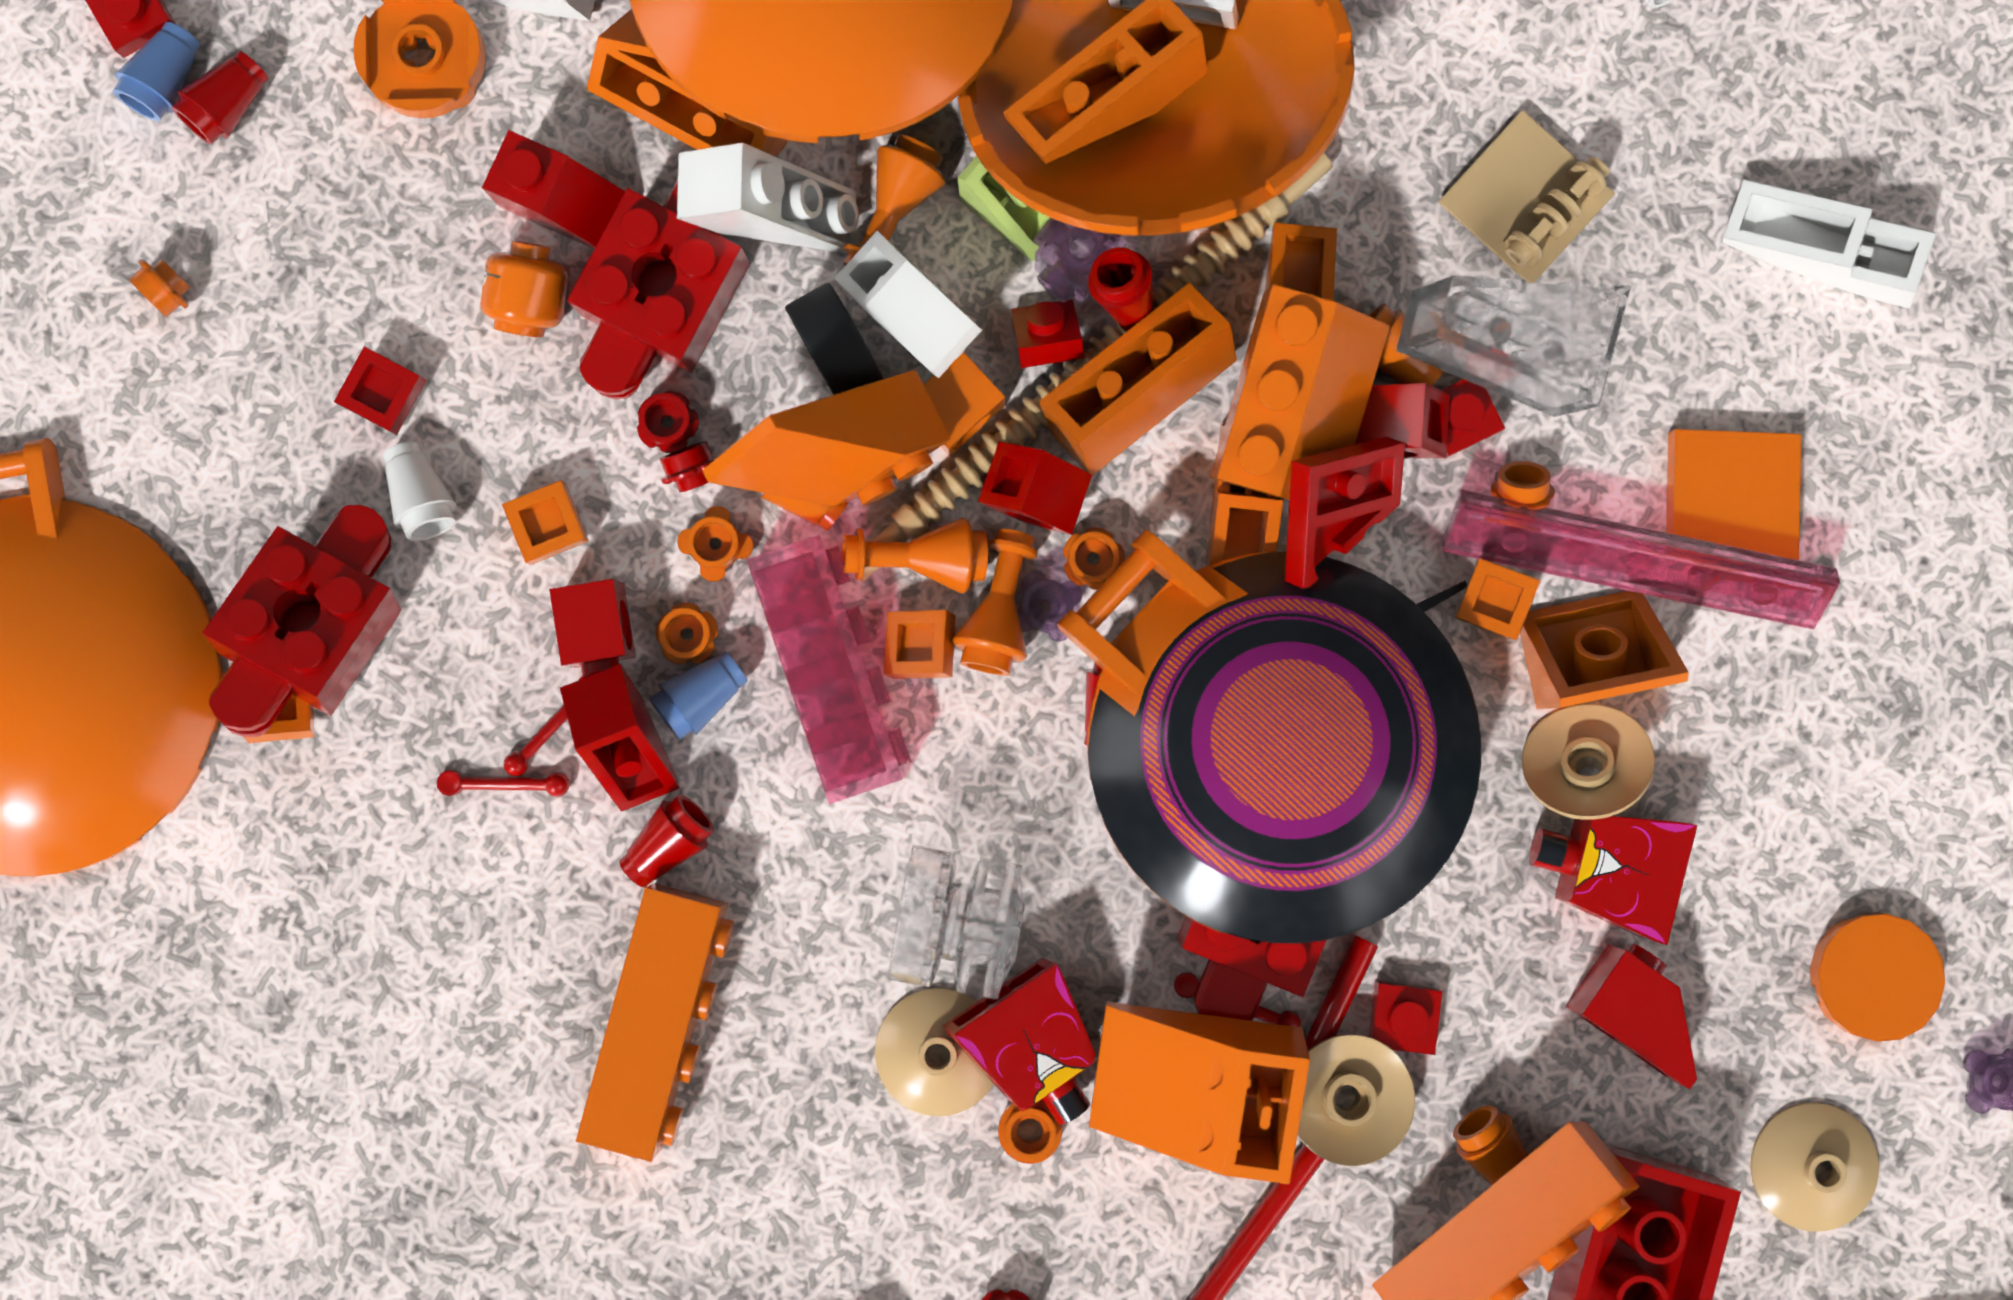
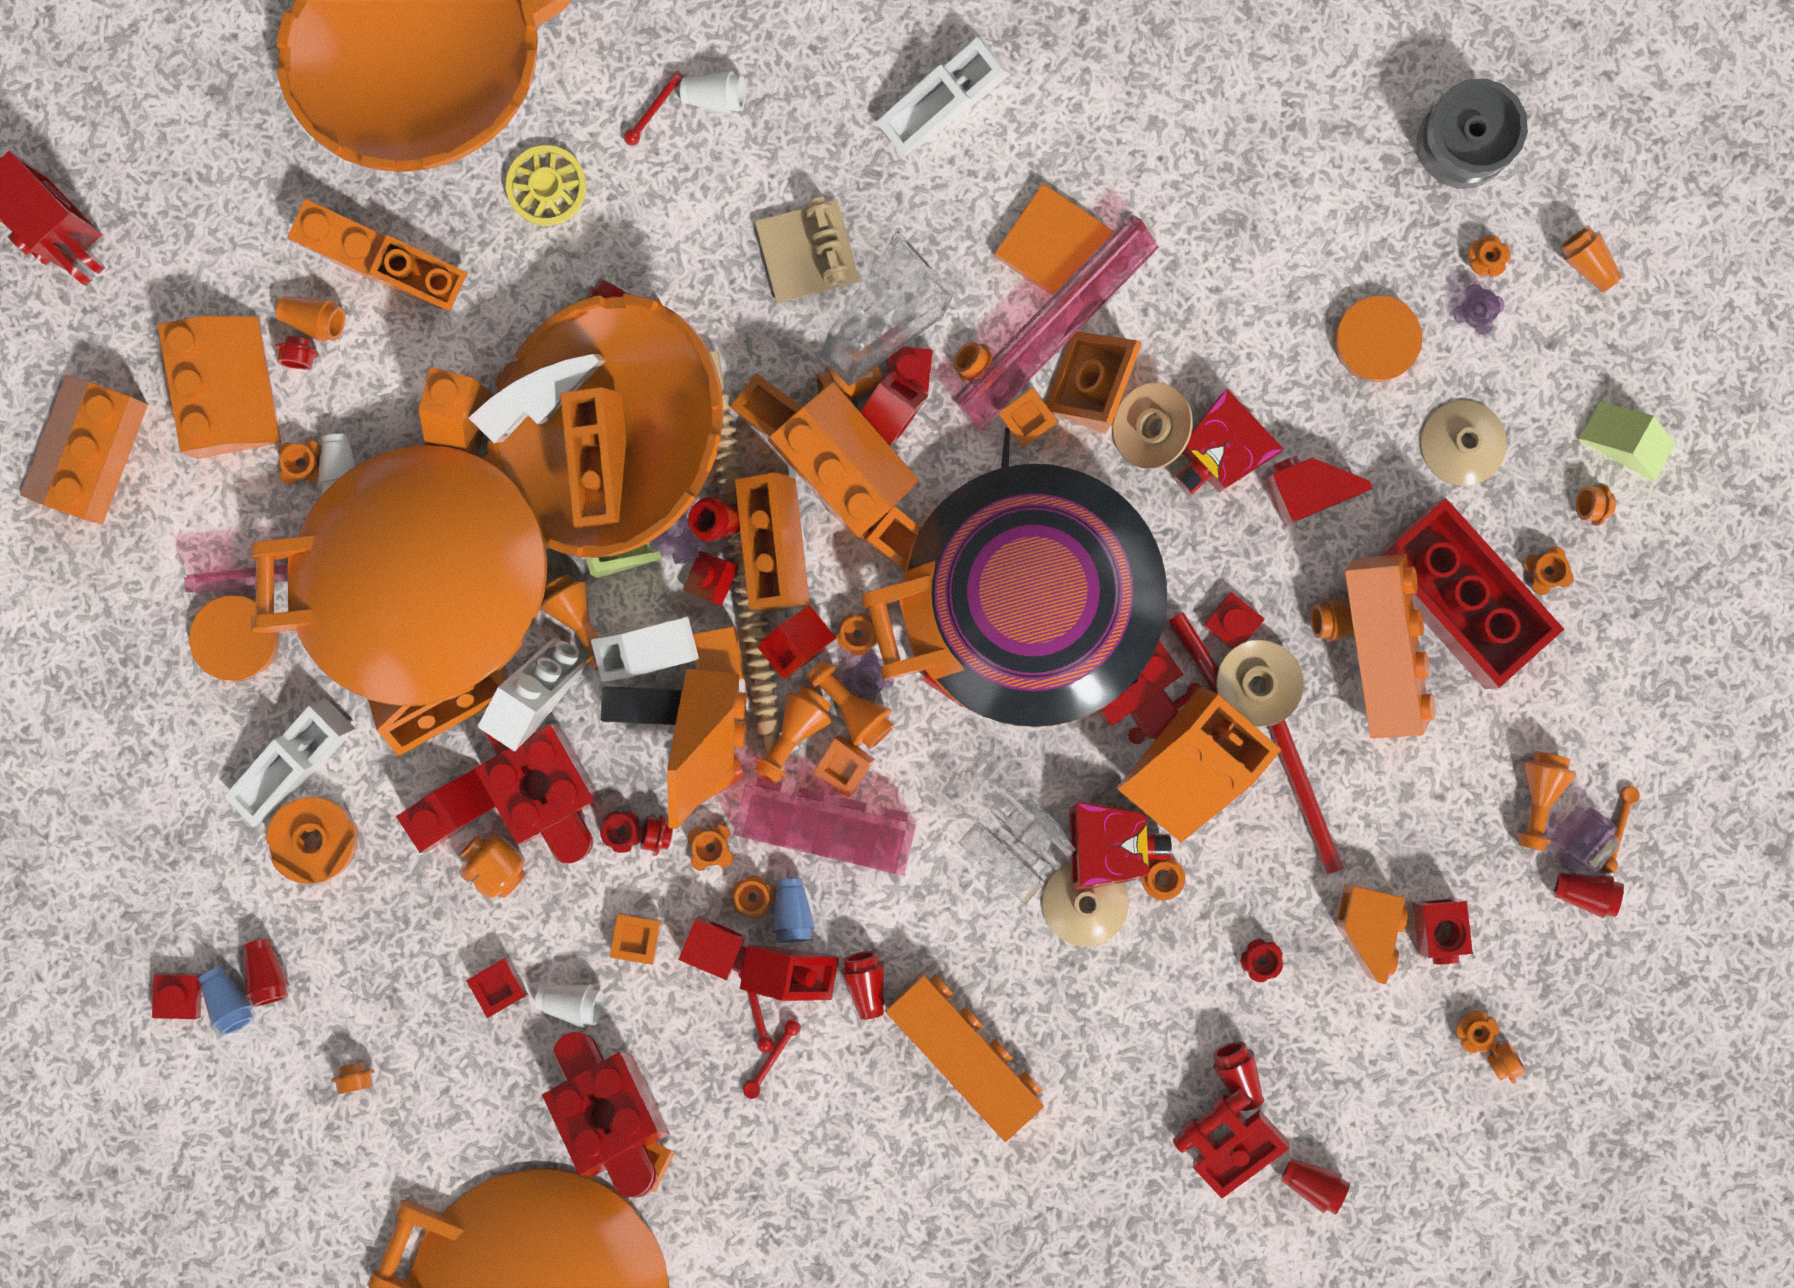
camera: 55 degrees left, 0 degrees up
(1337, 500) = (914, 475): red wing -> none

